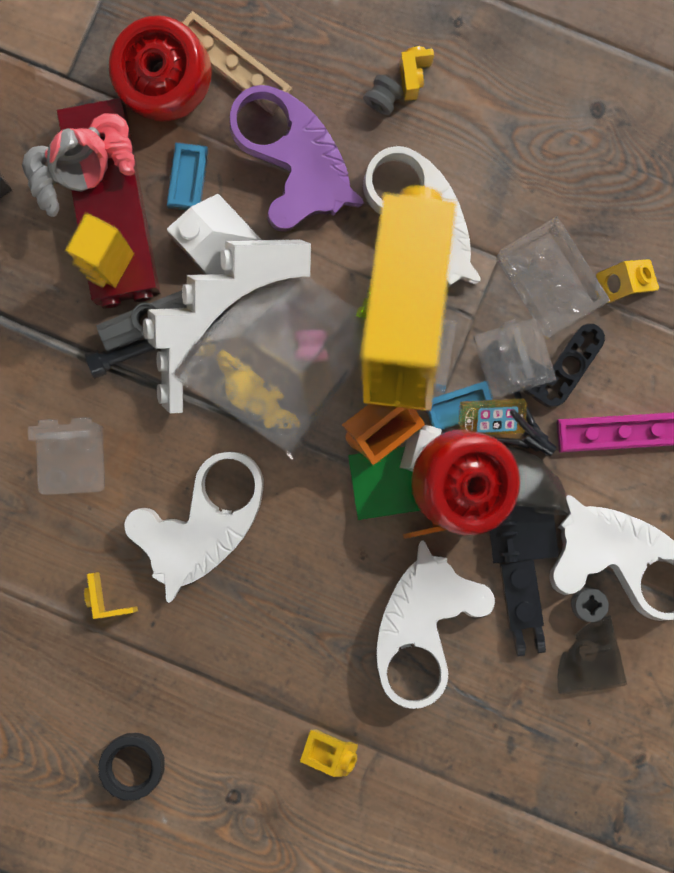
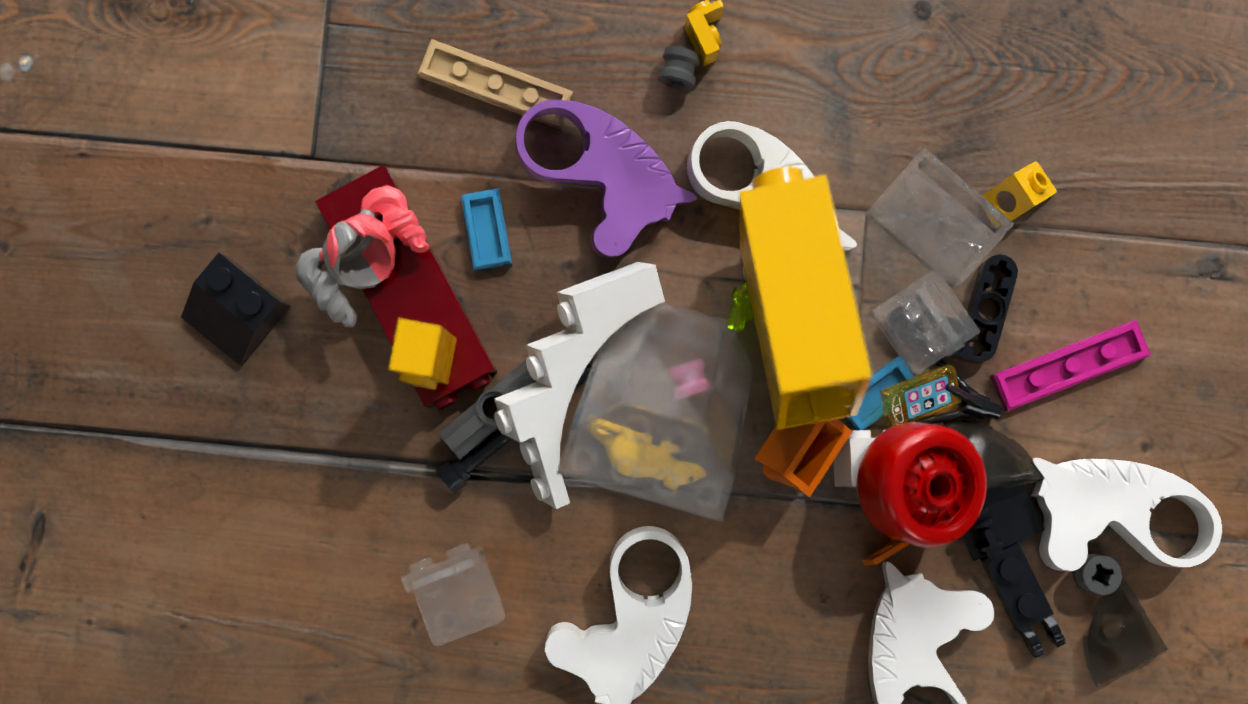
camera: 20 degrees left, 0 degrees up
(179, 83) = (447, 123): red wheel -> none
(204, 230) = (530, 287): white slope -> none
(381, 487) = (824, 518): green tile -> none

